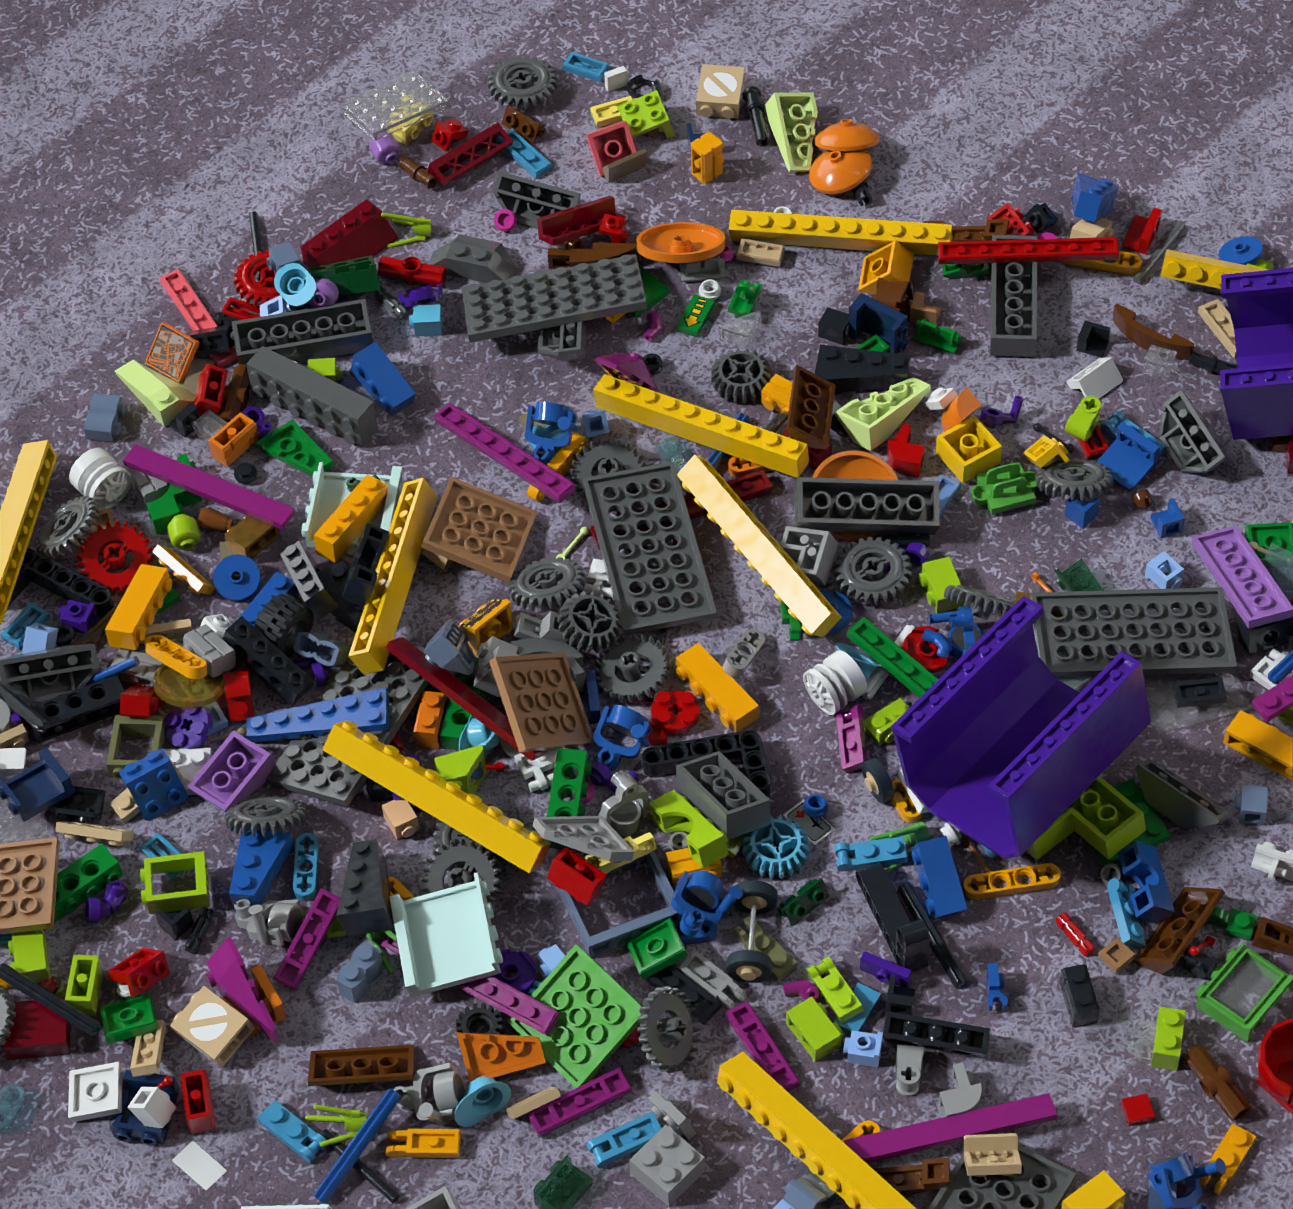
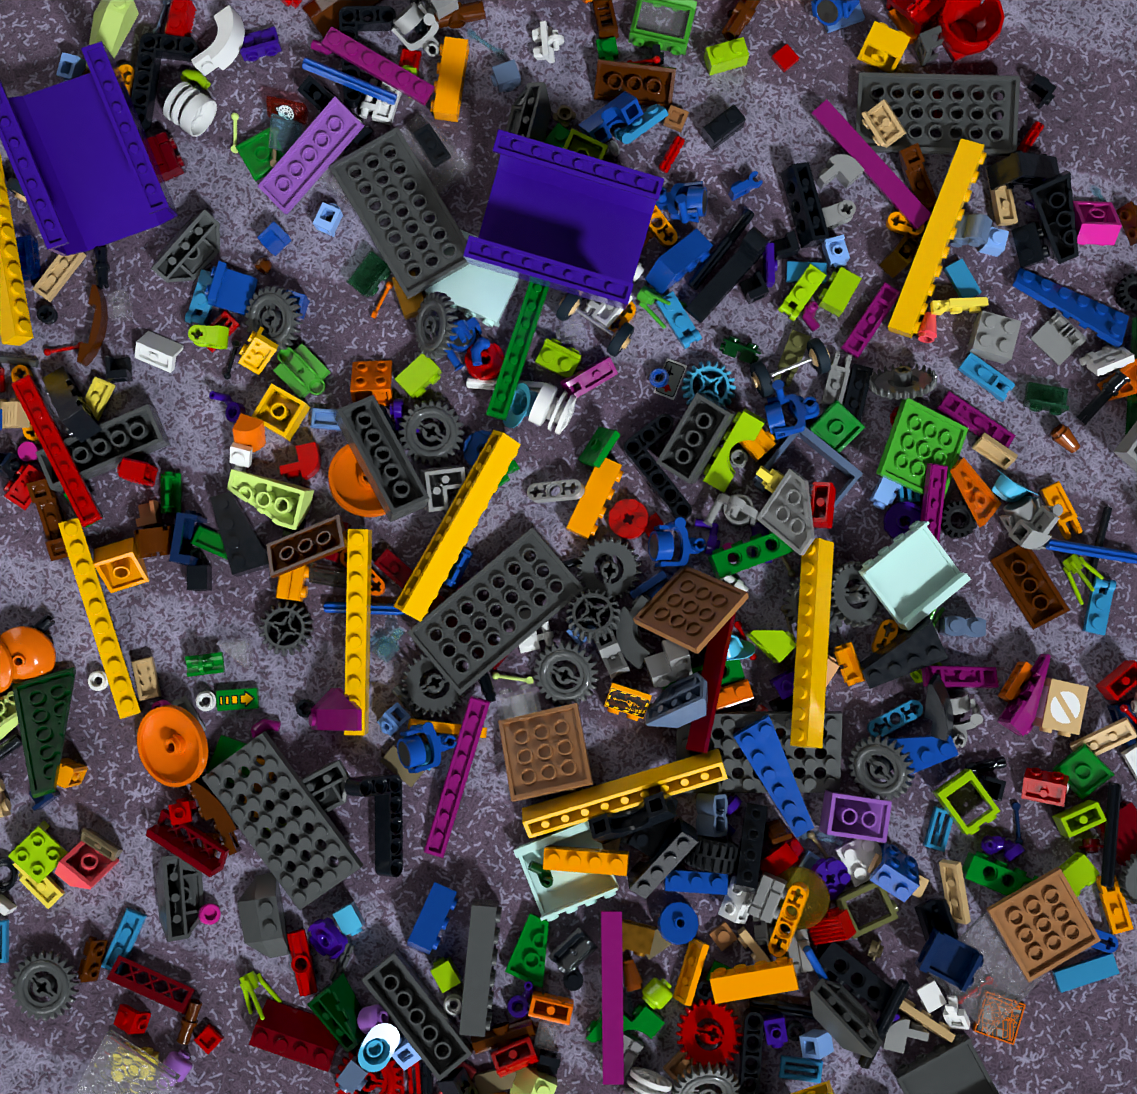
camera: 120 degrees left, 30 degrees up
(89, 738) = (875, 950): none -> dark tan plate
(137, 941) = (1016, 806): none -> dark blue hinge
(196, 613) = (723, 935): none -> medium nougat plate
(265, 695) = (777, 831): none -> reddish brown slope
(272, 478) = (573, 951): none -> black hinge
(290, 888) = (939, 708): none -> black slope
(392, 182) = (208, 1038): none -> red tile
(401, 844) = (847, 657): none -> light orange hinge
(417, 1075) = (1036, 531): none -> light grey brick
(503, 1189) = (1065, 438): none -> dark orange cone
(505, 380) = (388, 818): none -> black beam
(543, 528) = (518, 703): none -> clear brick
(576, 518) = (487, 687): none -> black axle
(671, 1115) = (959, 344): light grey plate -> none
(714, 539) = (458, 568): none -> blue hinge
(719, 1104) = (928, 328): none -> coral cone
(727, 1143) = (957, 305): none -> light yellow hinge
(755, 1173) = (962, 280): none -> dark azure tile
(768, 708) = (599, 447): none -> green plate
(773, 158) = (43, 719): none -> dark green wing
(821, 1105) = (900, 255): none -> dark brown slope
(868, 944) = (754, 288): none -> black panel
(960, 541) = (371, 379): none -> orange bracket
(971, 311) = (137, 471): none -> red brick
(1005, 920) = (690, 206): none -> blue piece
(1066, 307) = (98, 396): none -> light yellow hinge
(1070, 277) = (71, 405): none -> black wedge
(1144, 292) = (47, 351): none -> red hinge
(1180, 839) = (564, 110): none -> dark tan plate
(1187, 299) = (43, 310): none -> black bush

